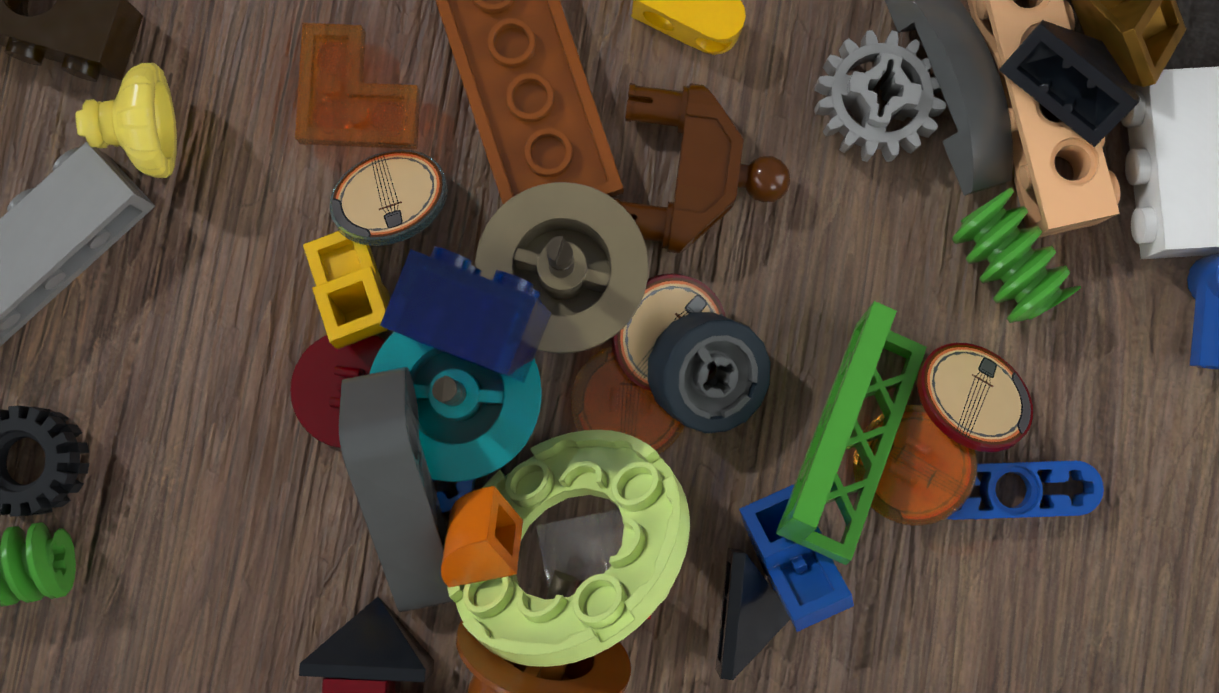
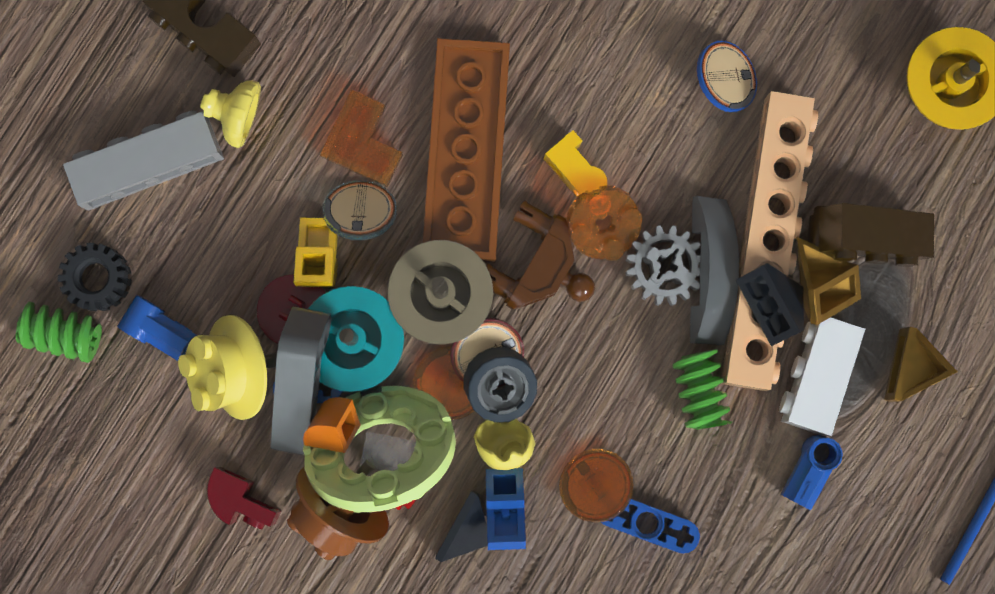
camera: 20 degrees right, 0 degrees up
(138, 498) = (149, 324): none -> blue piece
(280, 518) = (227, 369): none -> light yellow piece
(371, 648) = (246, 461): black slope -> none
(466, 315) = (378, 305): clear blue brick -> none
(753, 459) = (504, 444): none -> light yellow hair
(796, 61) = (611, 241): none -> clear orange plate
(838, 422) = (560, 441): bright green fence -> none
(975, 397) = (646, 460): piece -> none

